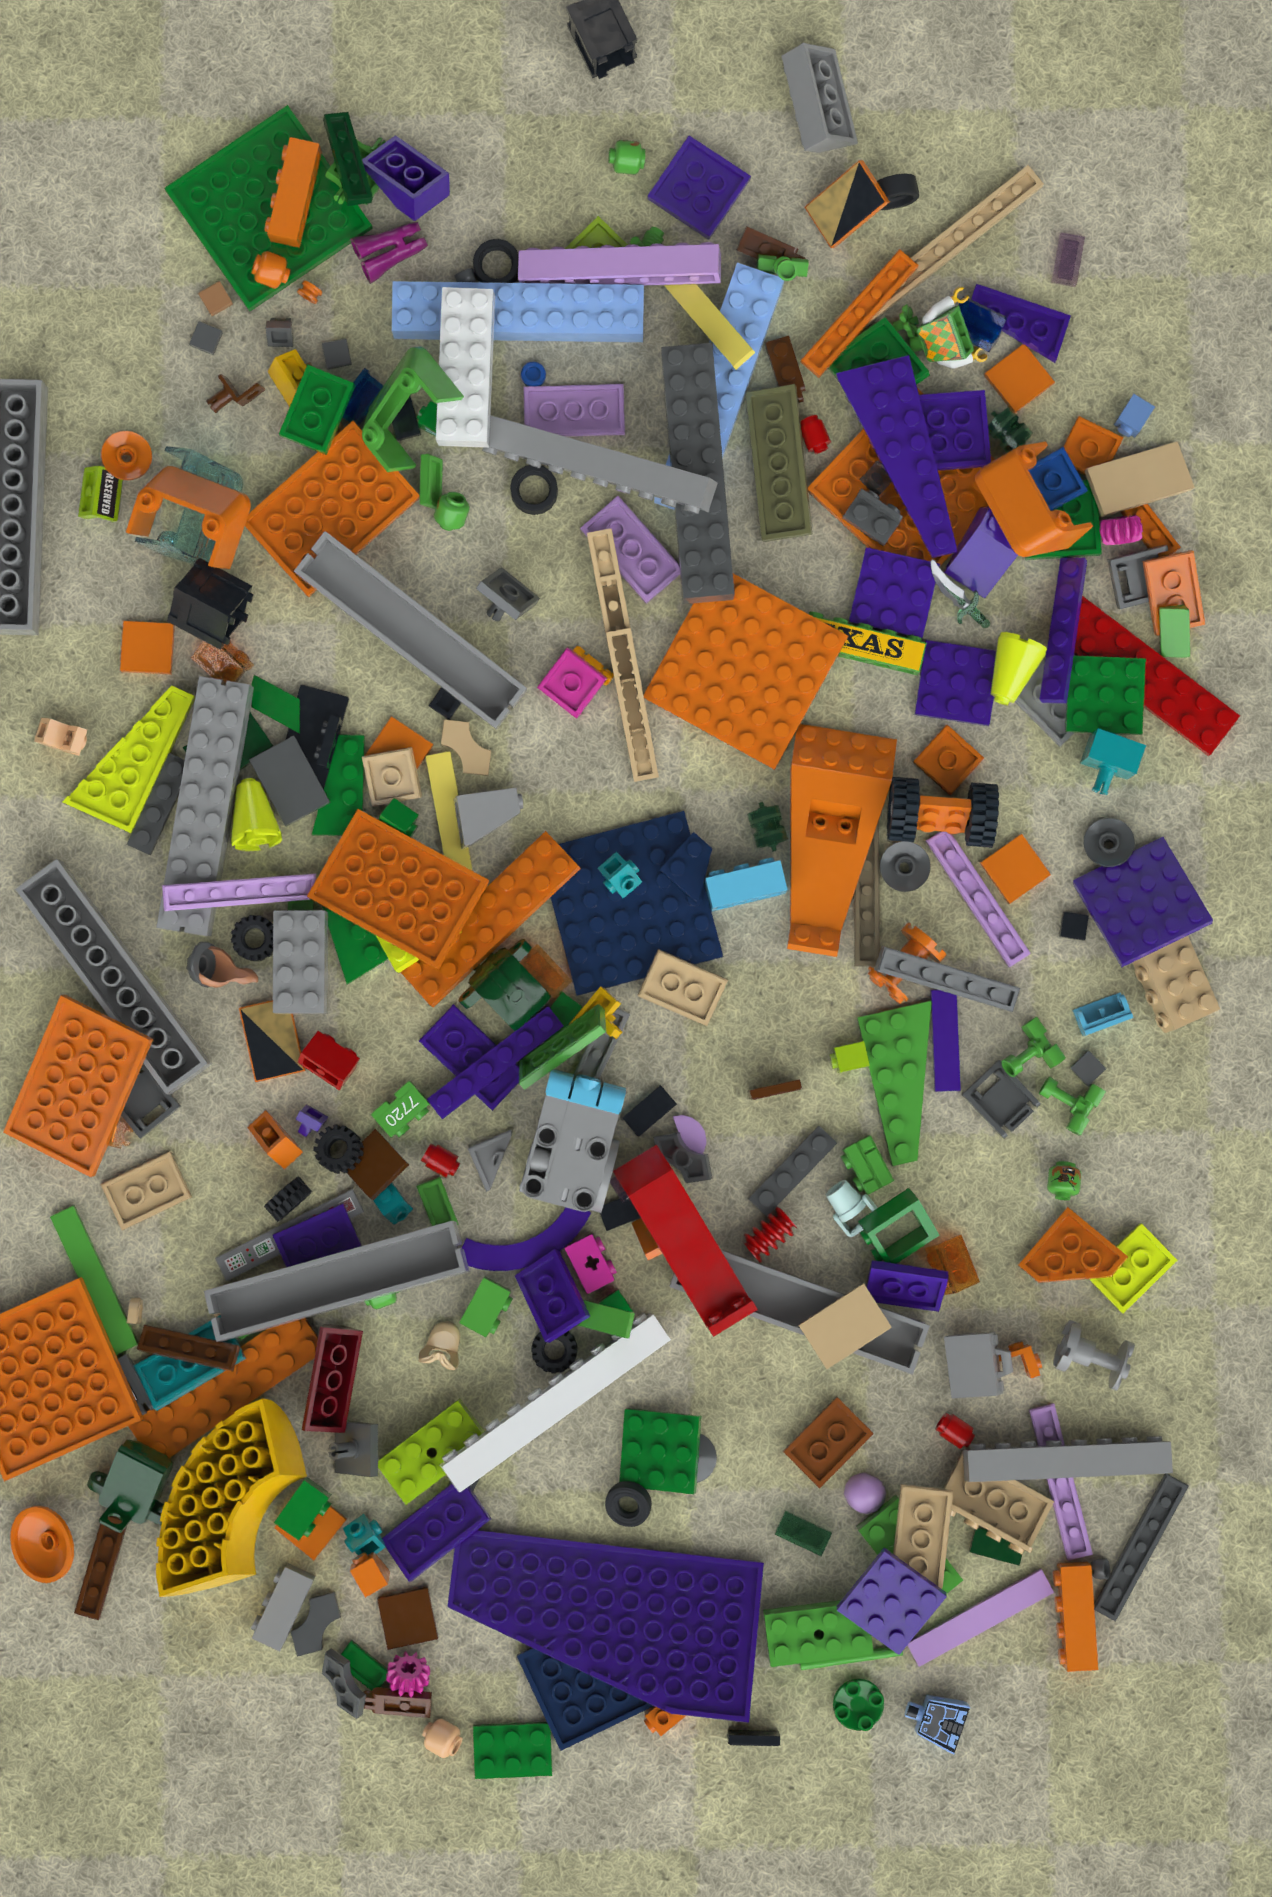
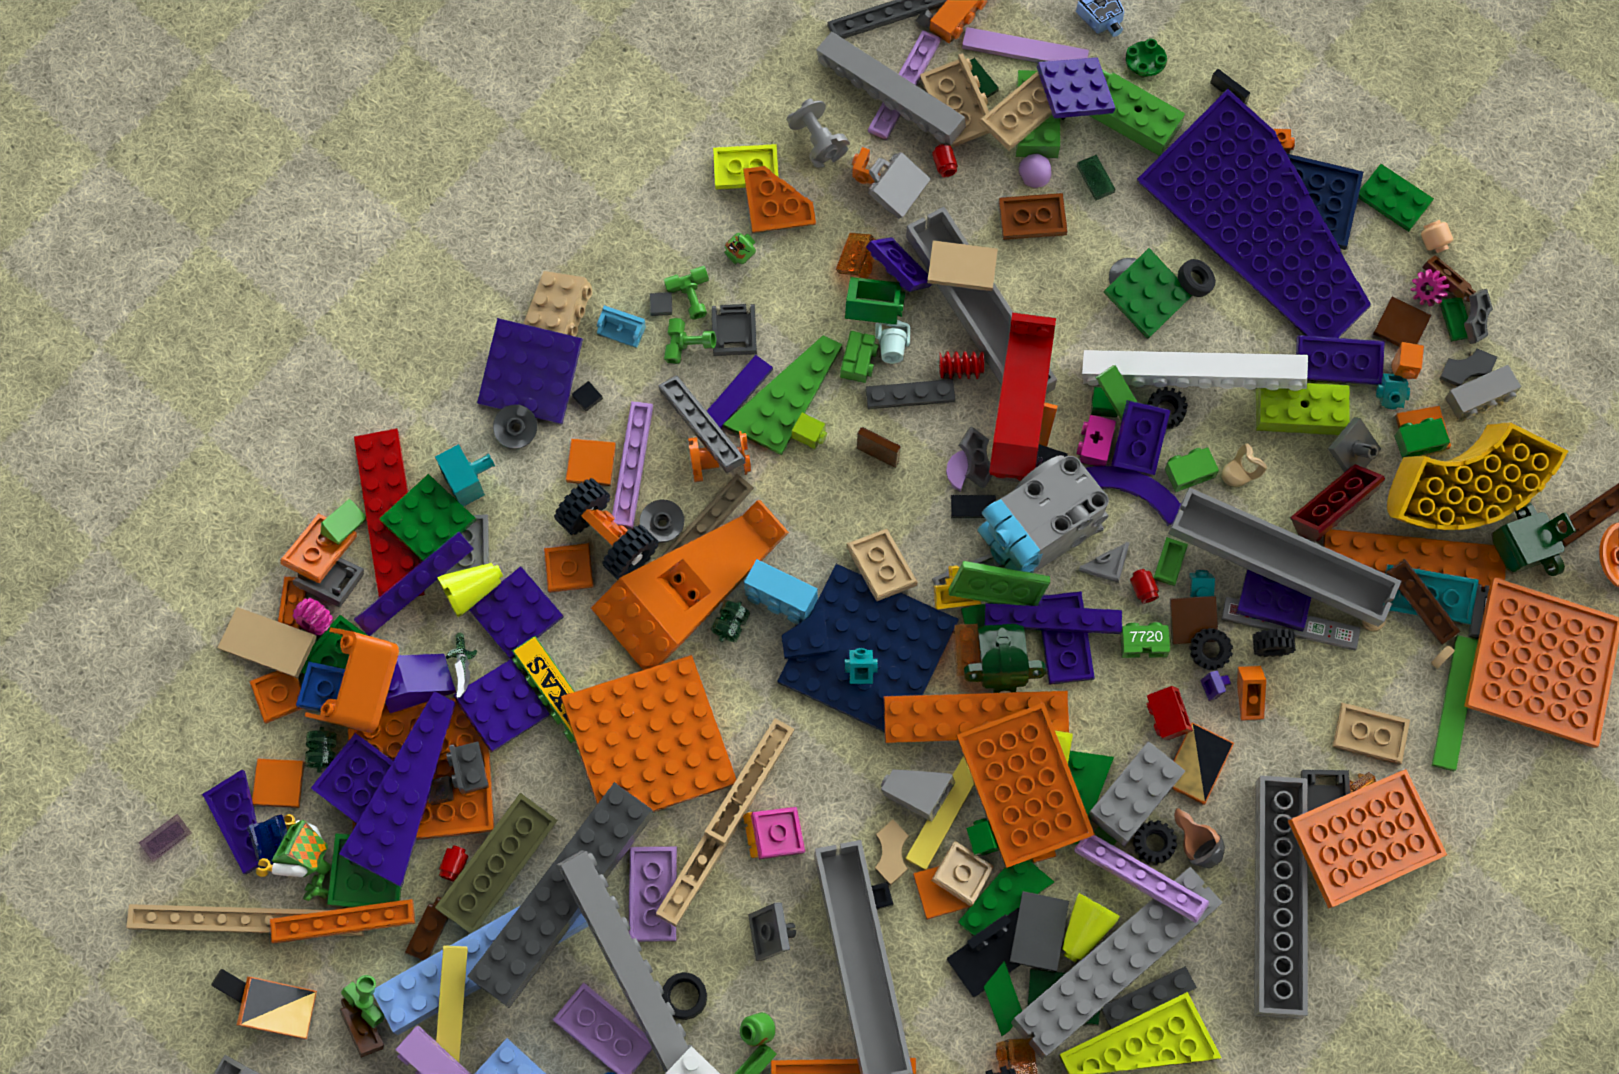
camera: 135 degrees left, 15 degrees down
(1133, 416) = (229, 688): medium blue brick -> none

